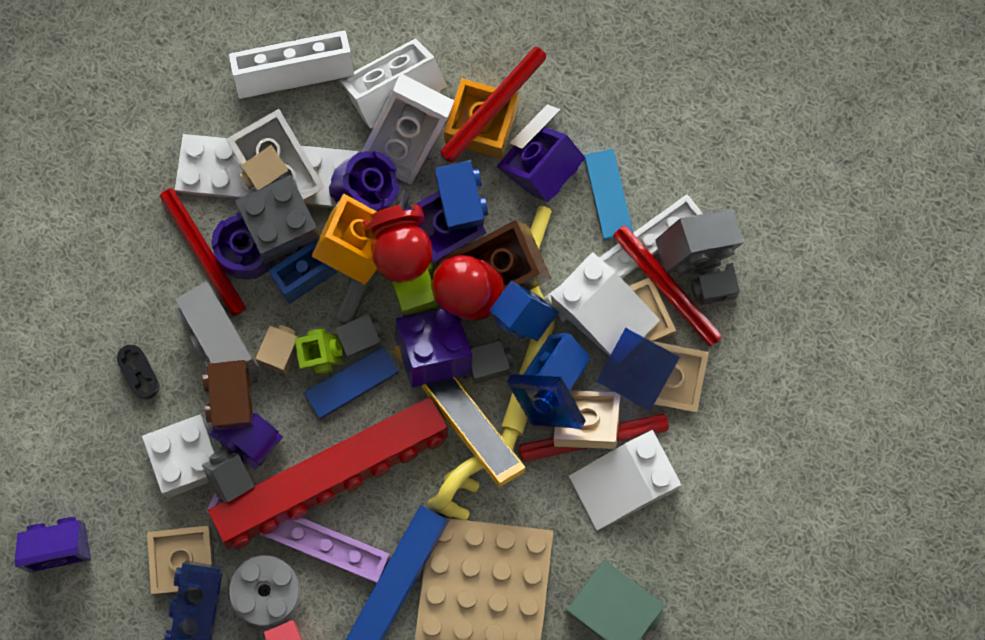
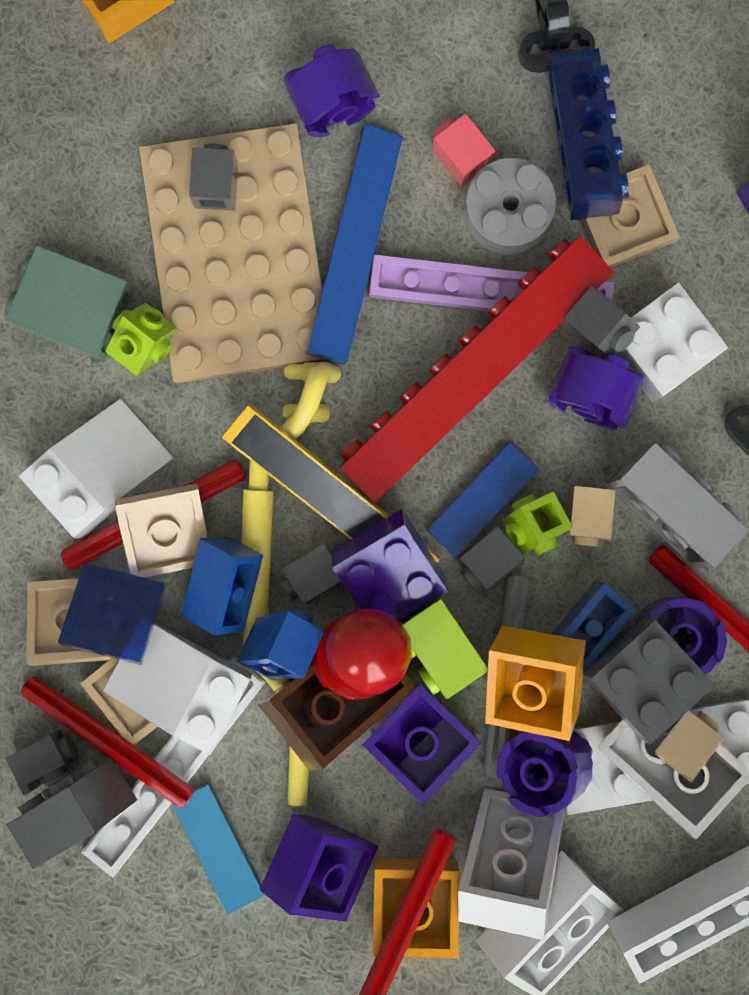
camera: 160 degrees right, 10 degrees up
(229, 395) = (635, 415): reddish brown brick -> none
(399, 245) = (467, 680): red tile -> none
(460, 196) = (409, 783): blue brick -> none
(535, 126) = (341, 917): white sticker -> none
(546, 401) = (217, 531): clear blue plate -> none
(567, 565) = (140, 338): none -> lime brick

